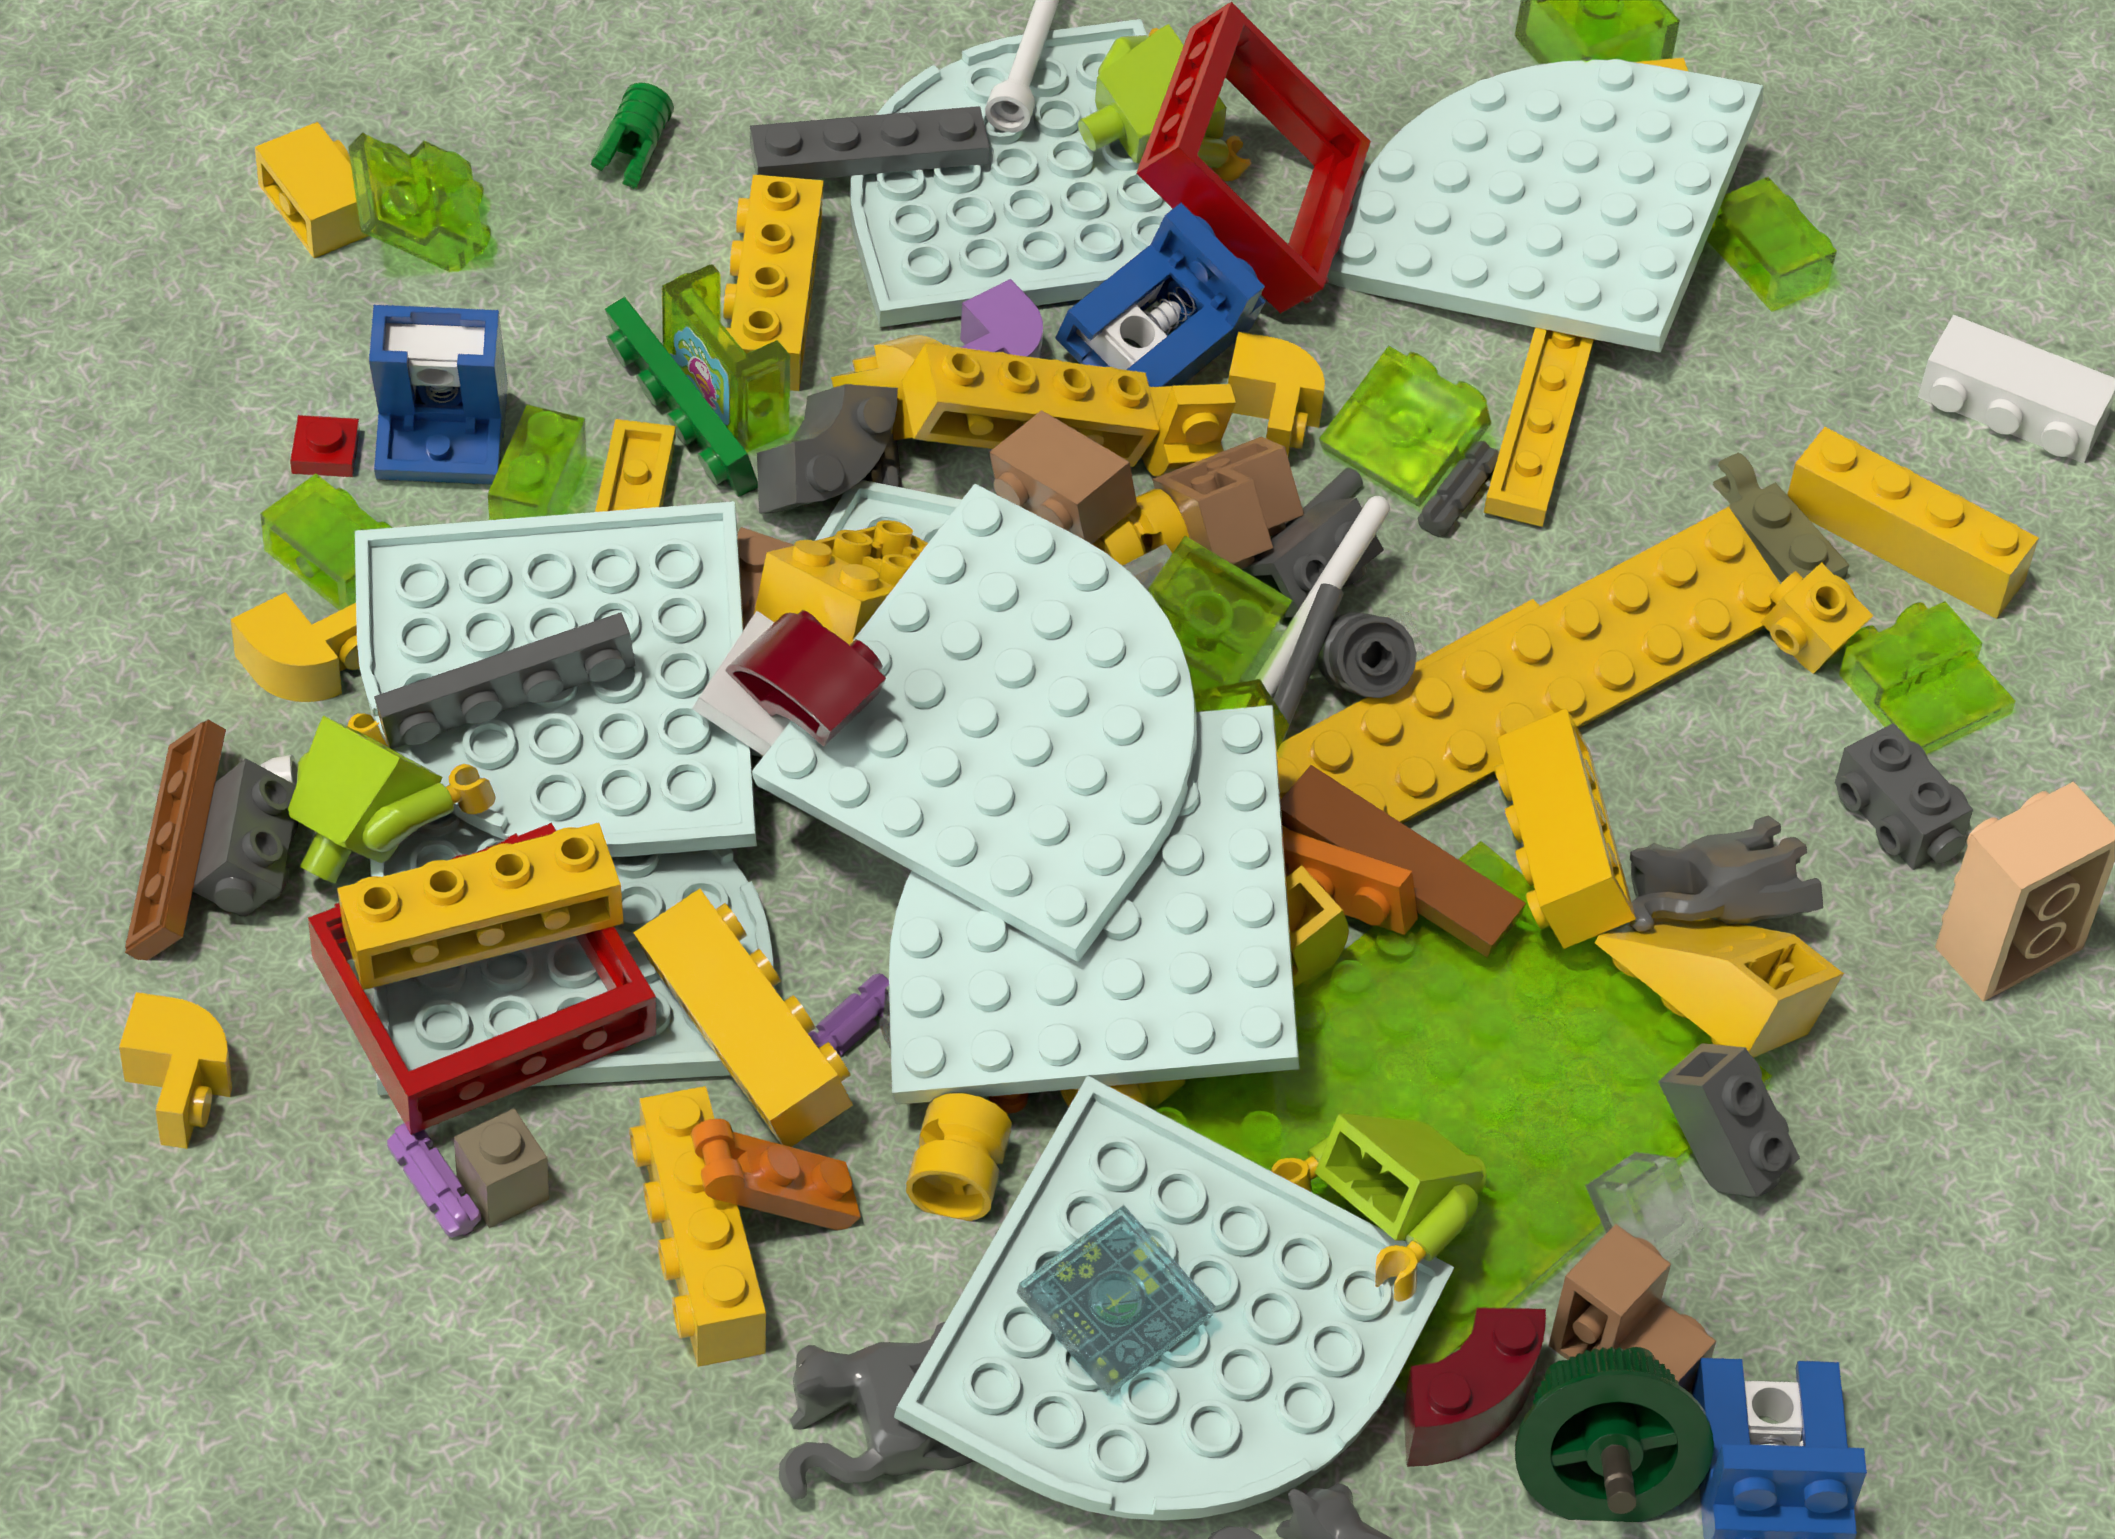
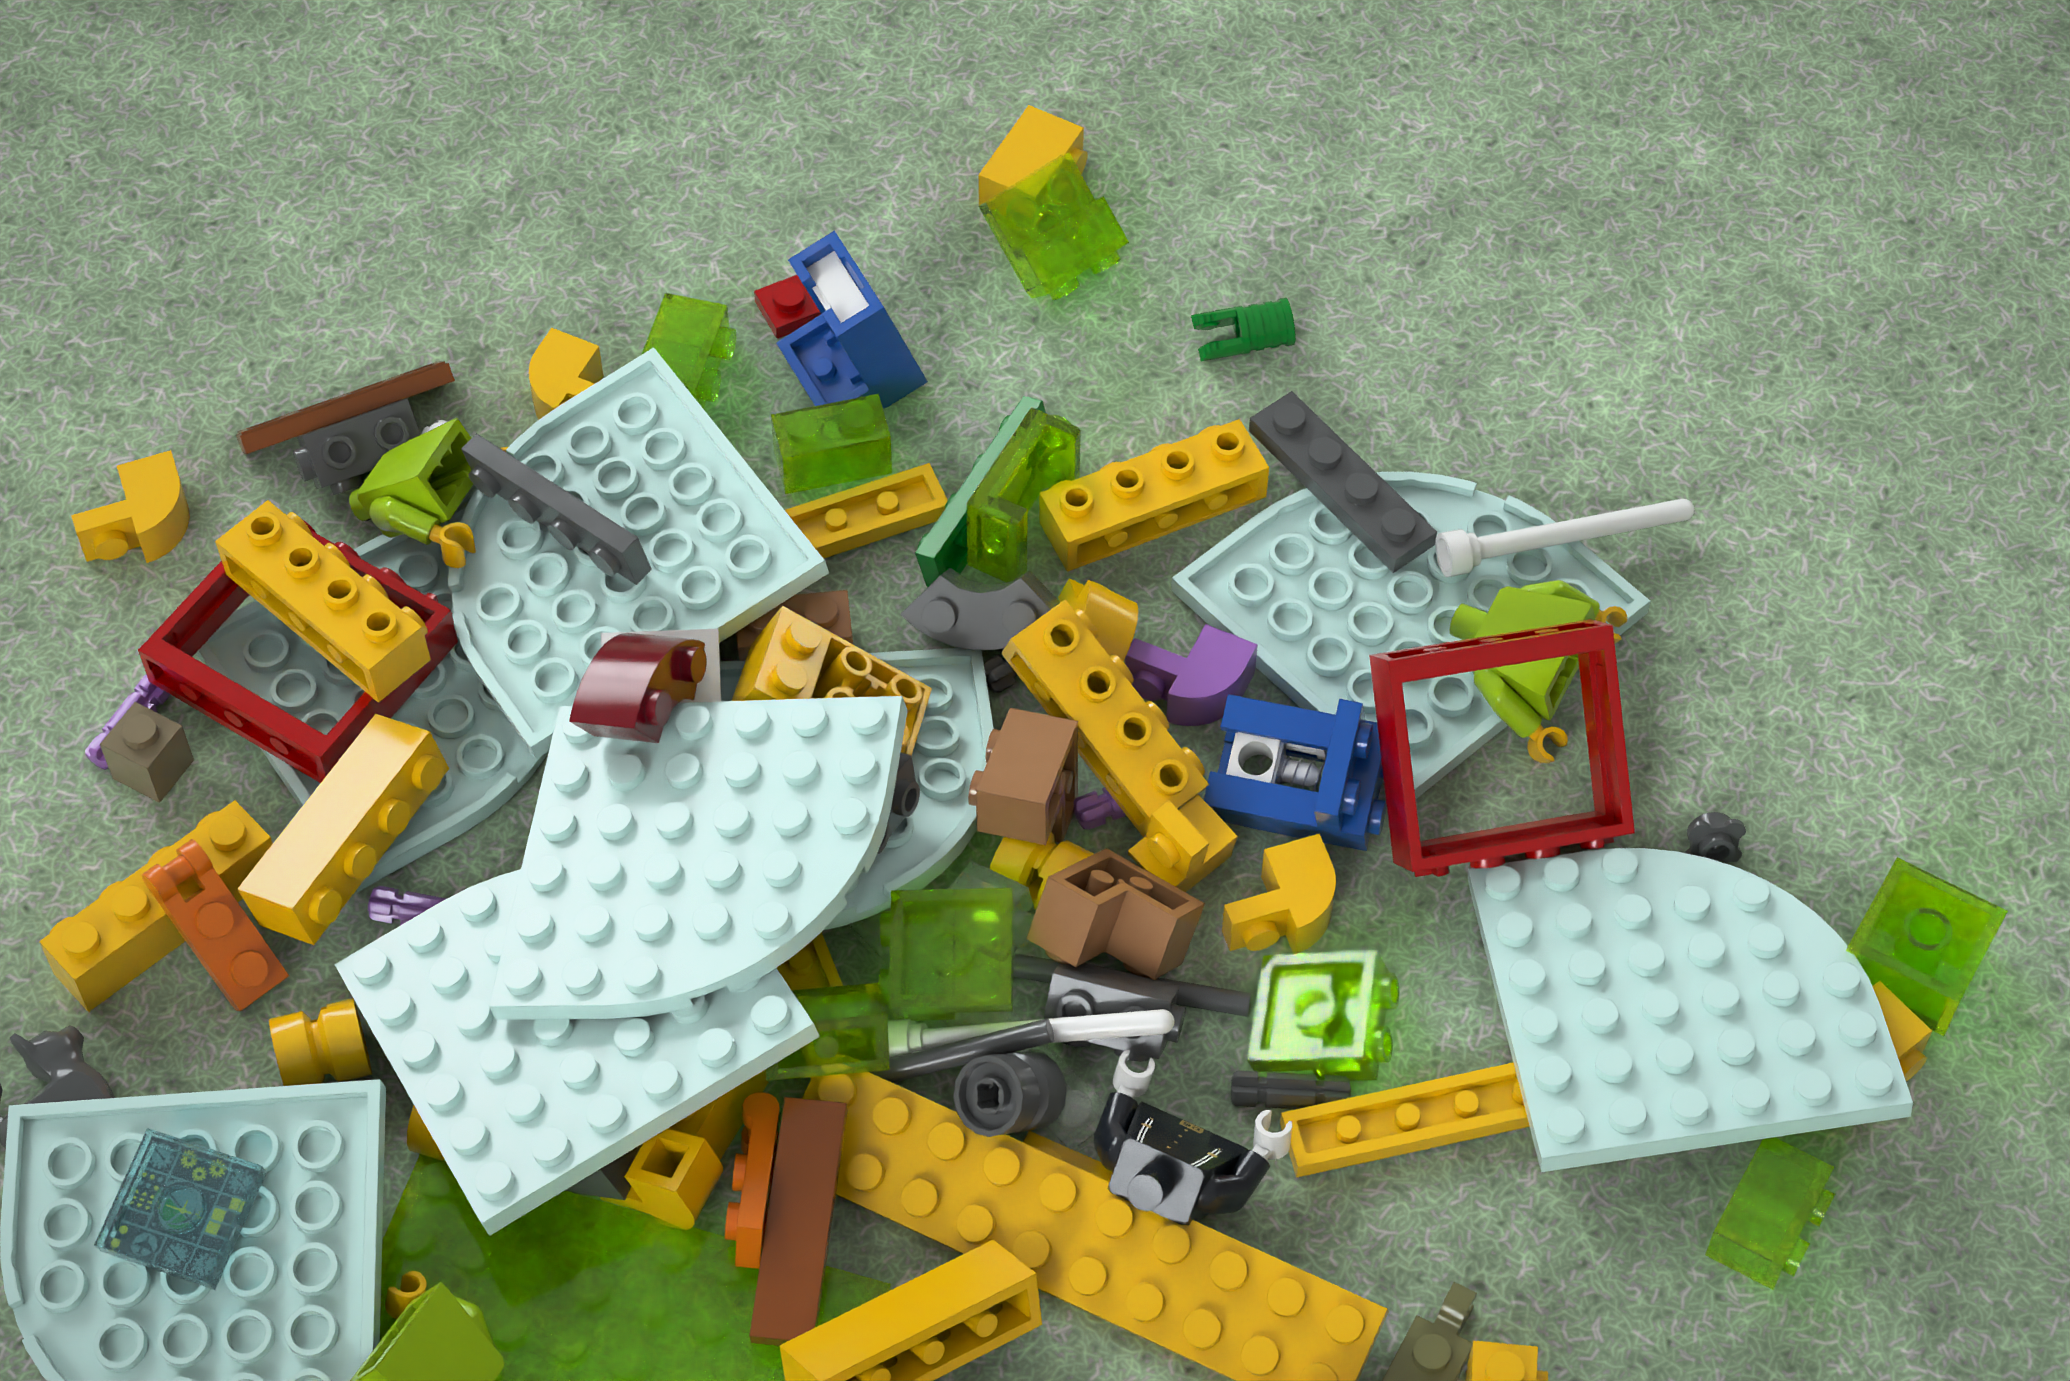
camera: 65 degrees right, 5 degrees up
(1401, 101) = (1715, 837): none -> dark grey plate
(1493, 585) = (1173, 1164): none -> black torso

